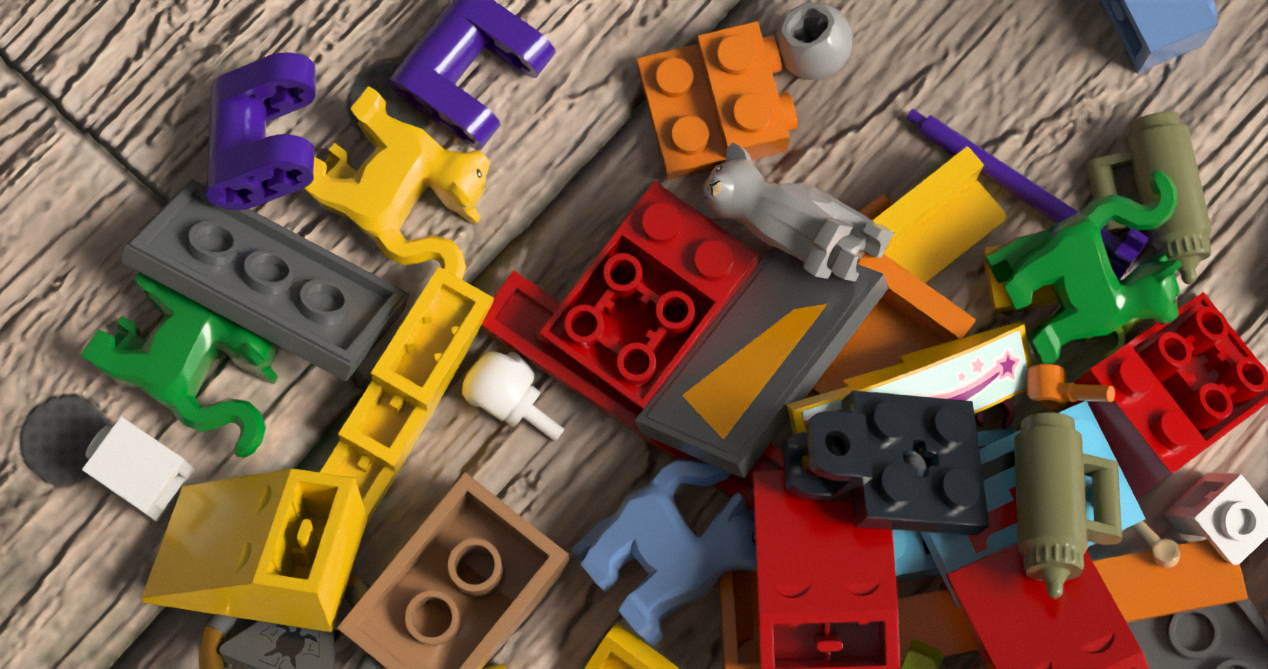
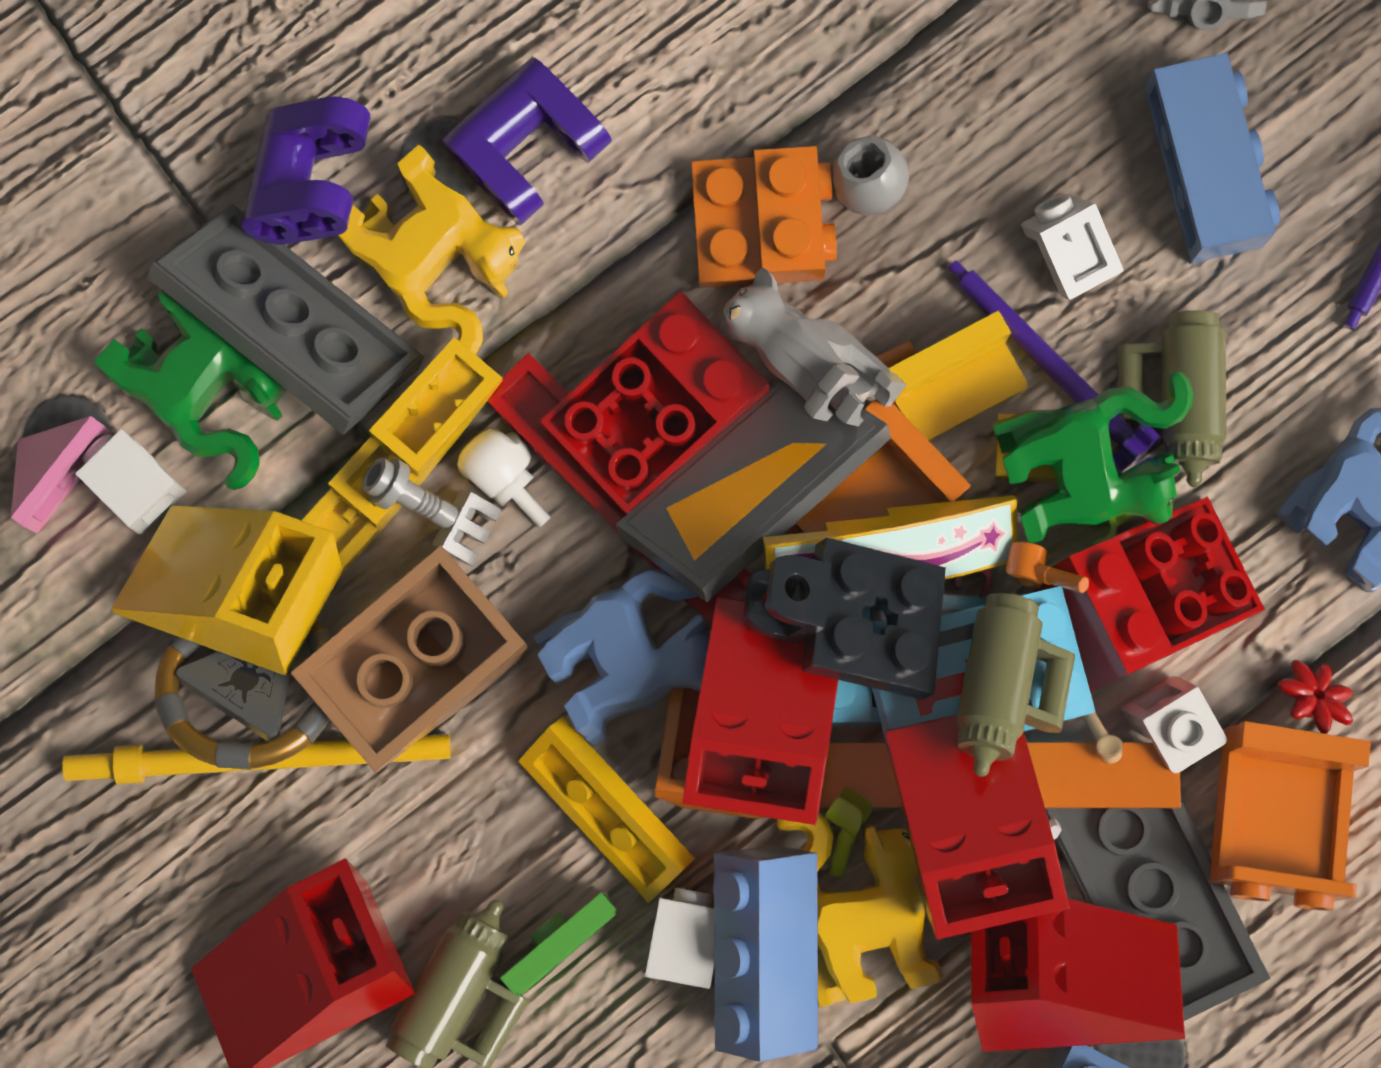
camera: 15 degrees right, 5 degrees up
(53, 471) = (48, 468): none -> bright pink slope
(401, 420) = (390, 483): none -> light grey hinge
(1023, 72) = (1073, 244): none -> white bracket

